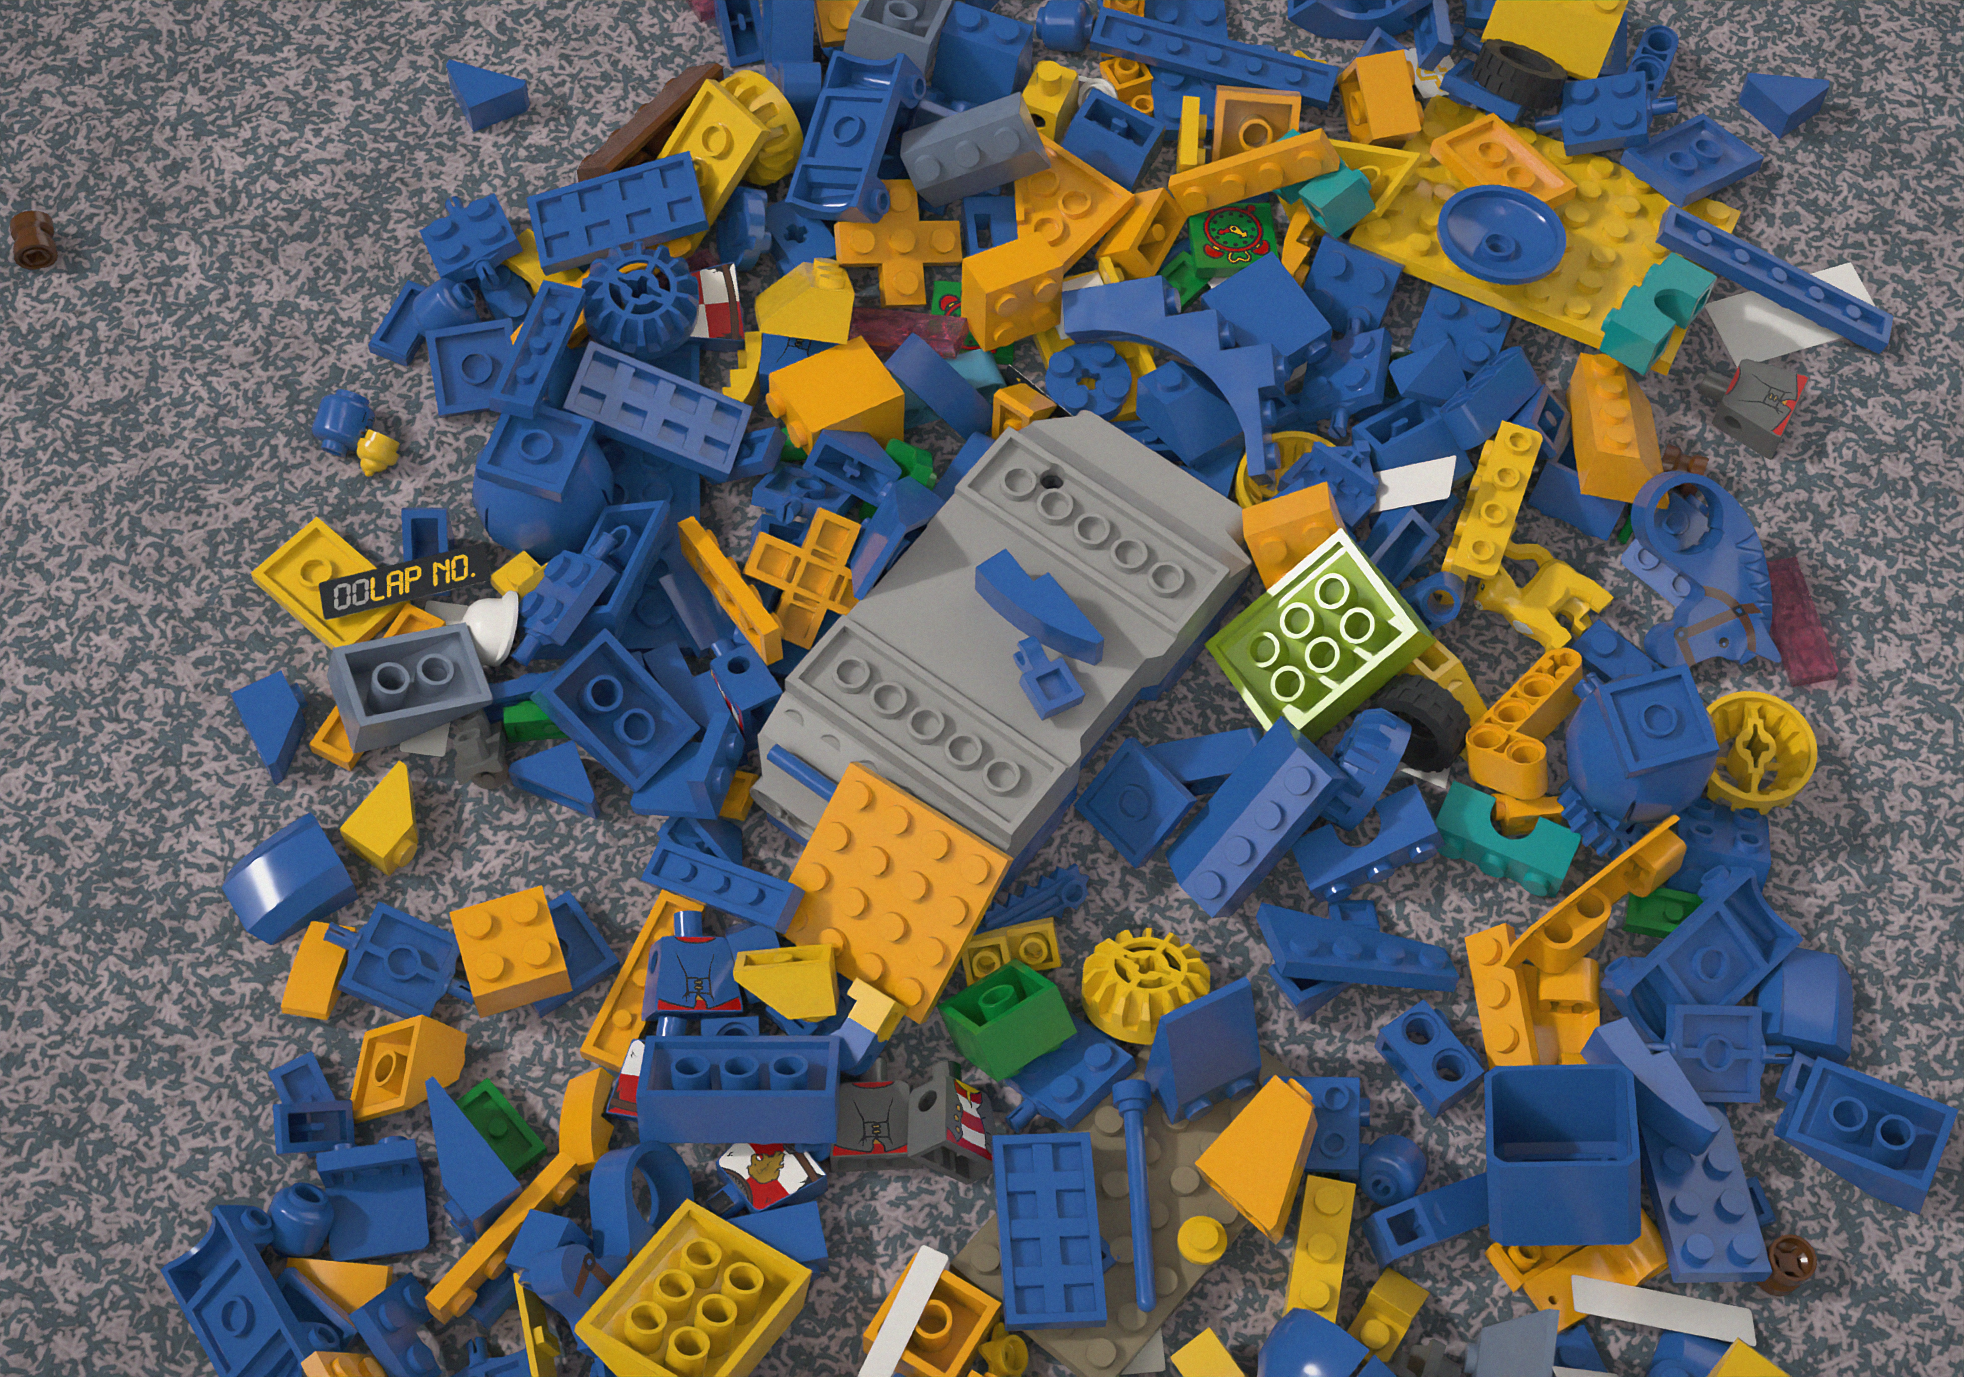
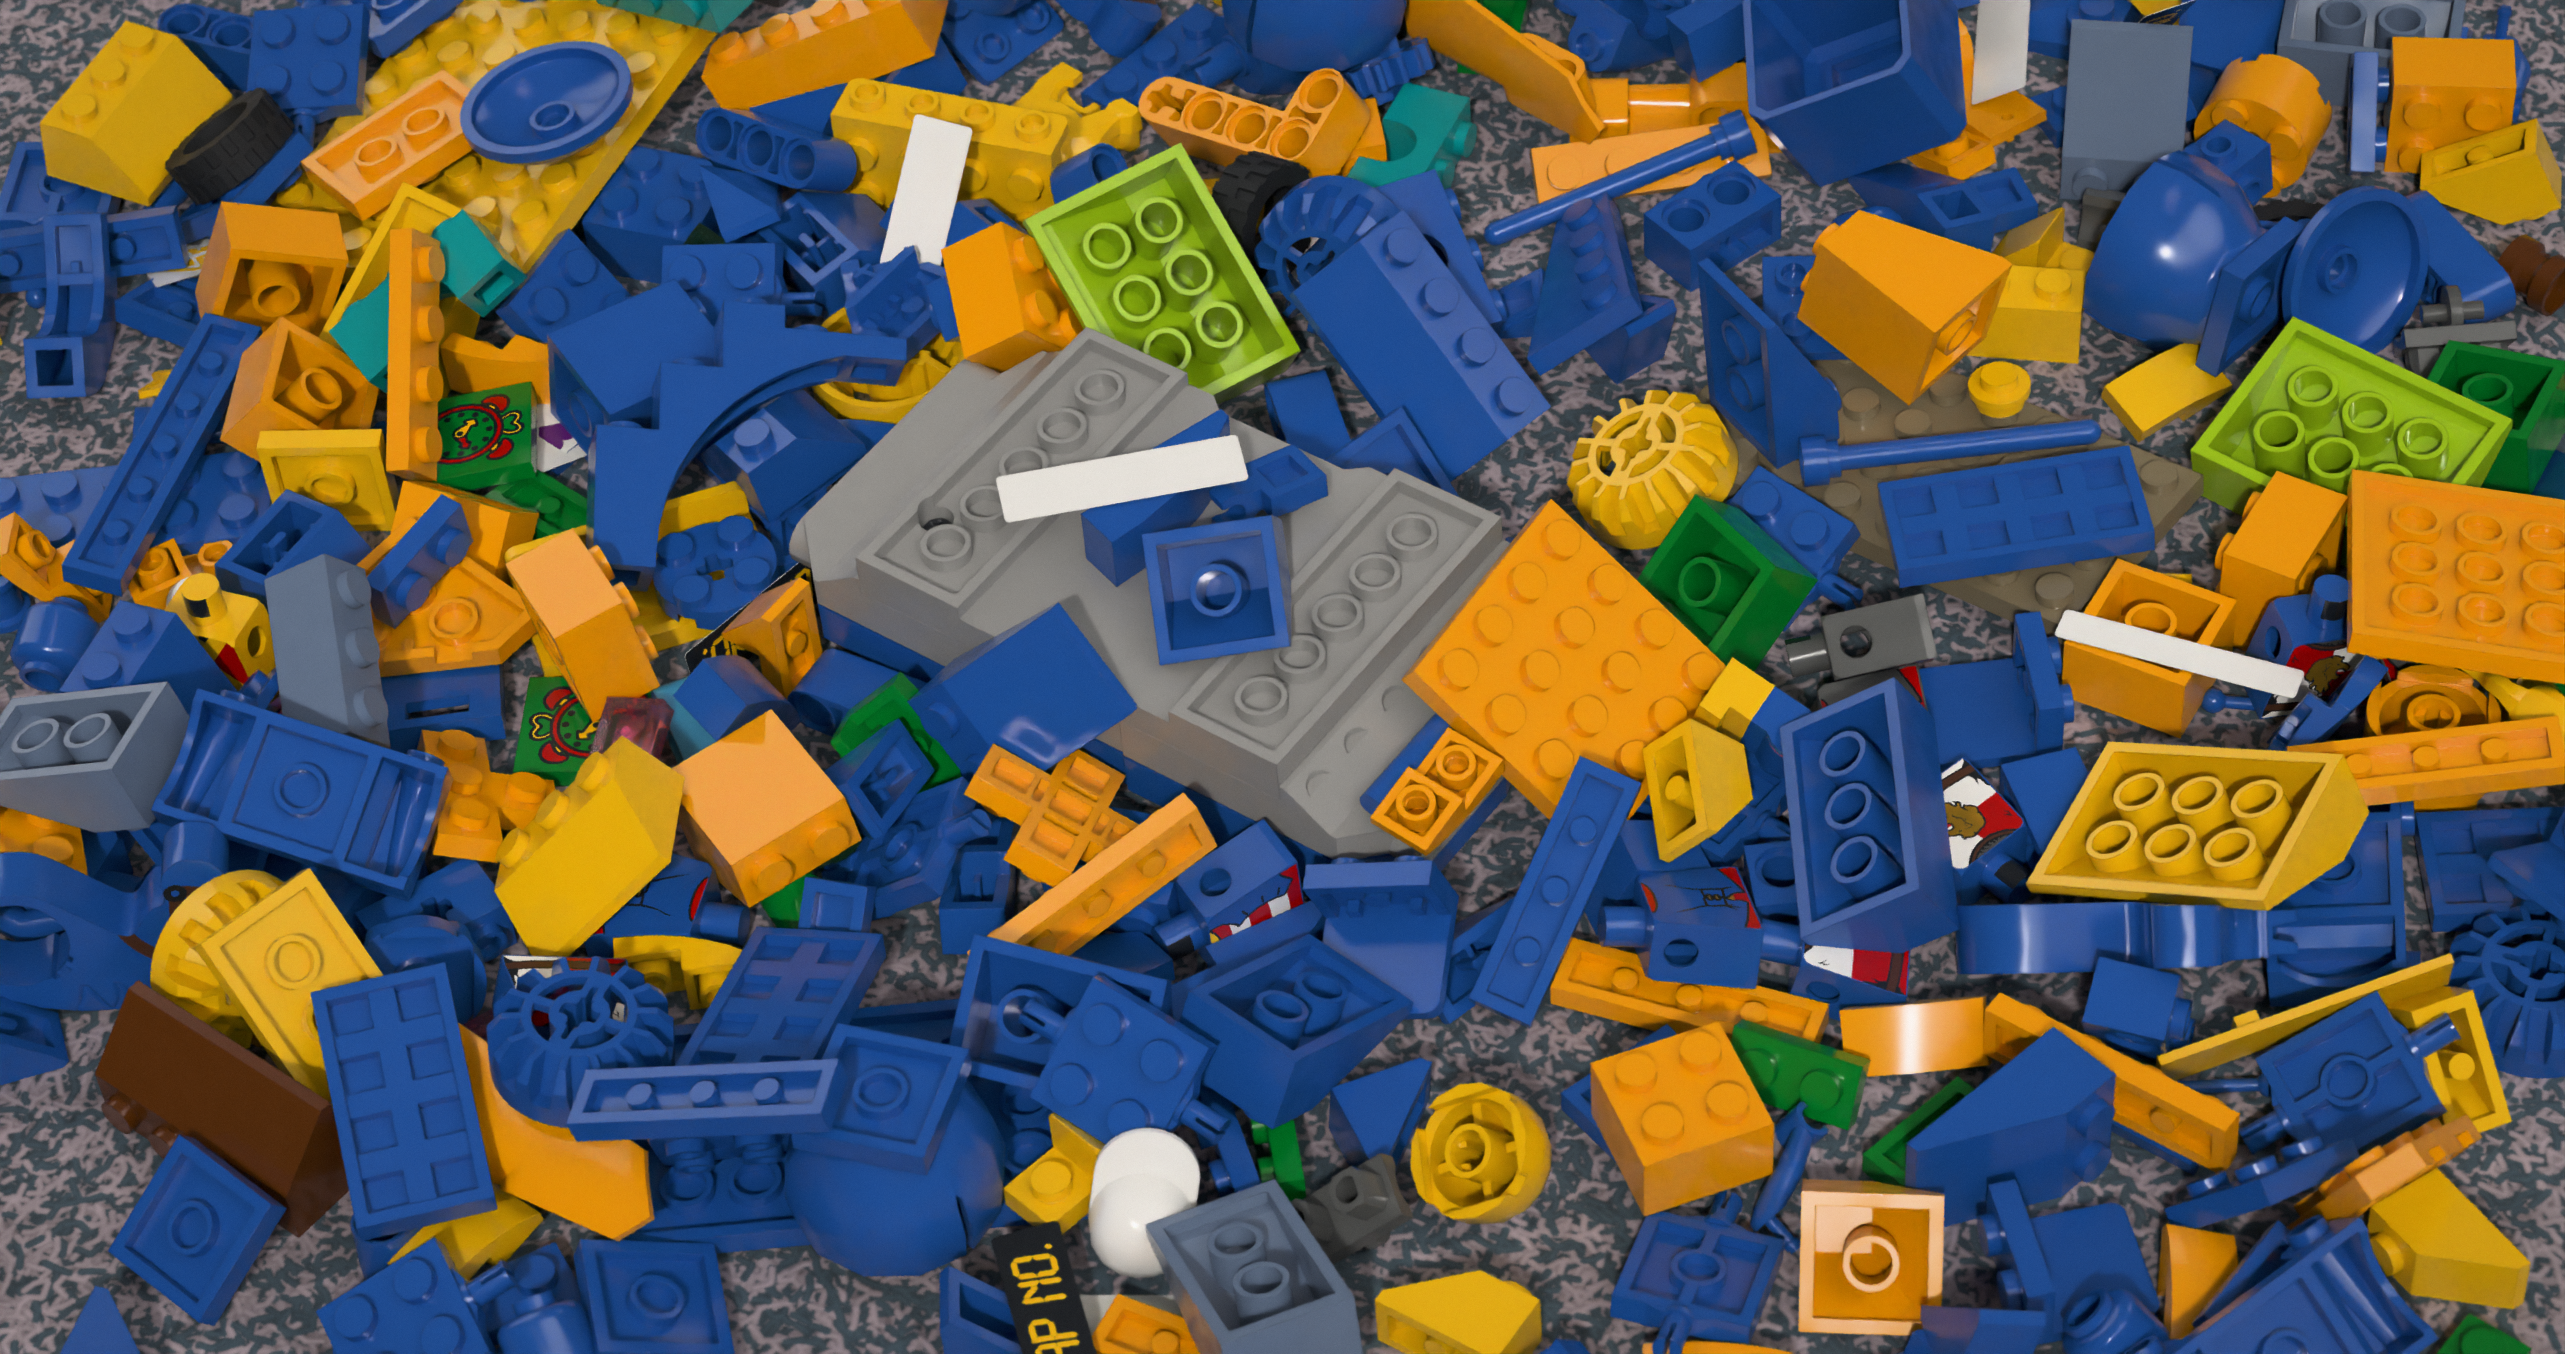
camera: 85 degrees left, 15 degrees down
(490, 1032) = (1797, 1141): none -> blue piece
(510, 835) = (1481, 1155): none -> yellow cylinder
(557, 1054) = (1800, 1070): none -> green plate
(569, 131) = (197, 1230): none -> blue plate
(777, 794) = (1439, 794): none -> light orange slope
(896, 1212) = (2001, 706): none -> blue bracket
(939, 639) = (1219, 589): none -> blue slope
(1036, 574) = (1121, 478): none -> white sticker
(1077, 195) = (419, 561): none -> blue plate
(1456, 1284) = (2007, 197): none -> blue plate
(1497, 1052) = (1725, 140): none -> blue piece

